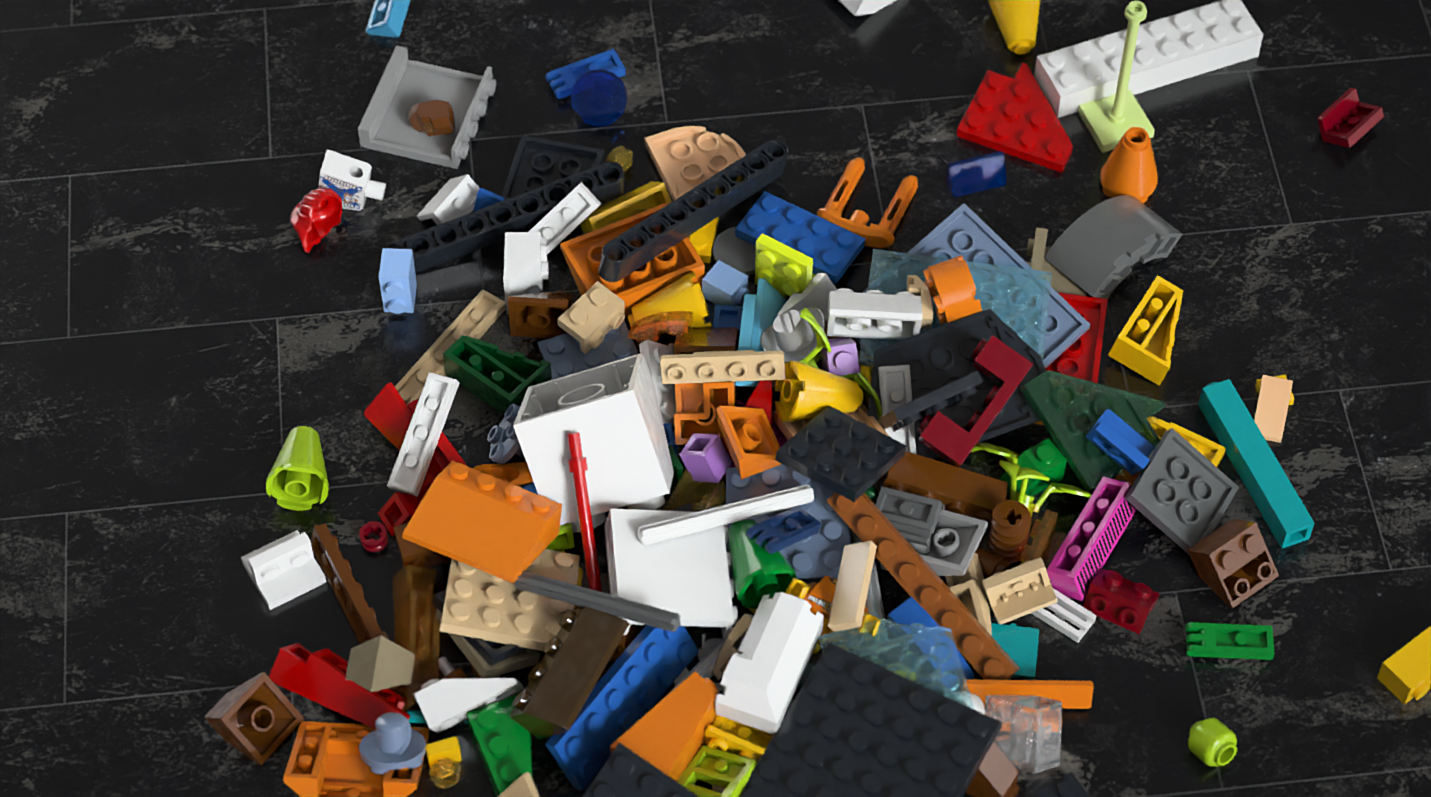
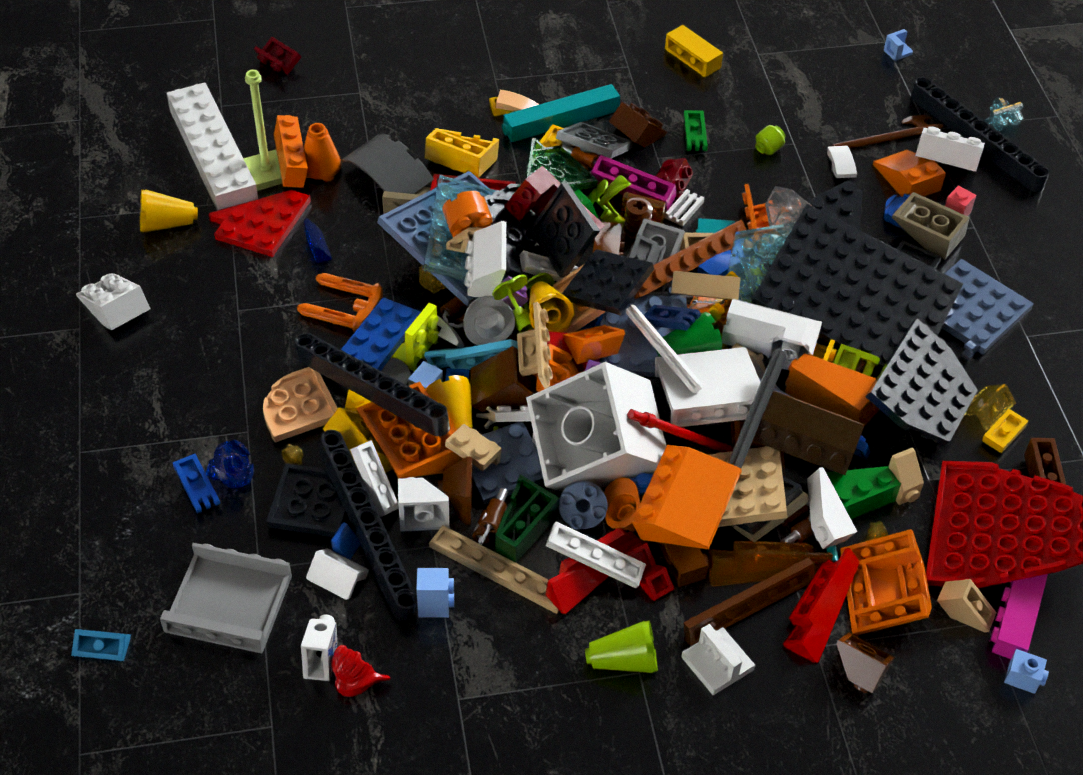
camera: 95 degrees left, 5 degrees down
(377, 529) = (678, 592): dark red bush -> none
(380, 664) = (820, 565): dark tan slope -> none
(392, 745) = (880, 552): sand blue plate -> none
(432, 117) = (247, 585): reddish brown rock -> none
(444, 748) = (864, 530): yellow tile -> none
(501, 337) = (490, 518): none -> reddish brown piece
(652, 326) = (478, 409): clear orange slope -> none
(1019, 591) = (682, 214): tan bracket -> none
(1120, 442) = (568, 159): blue panel -> none
(1166, 131) = (290, 151): none -> orange brick

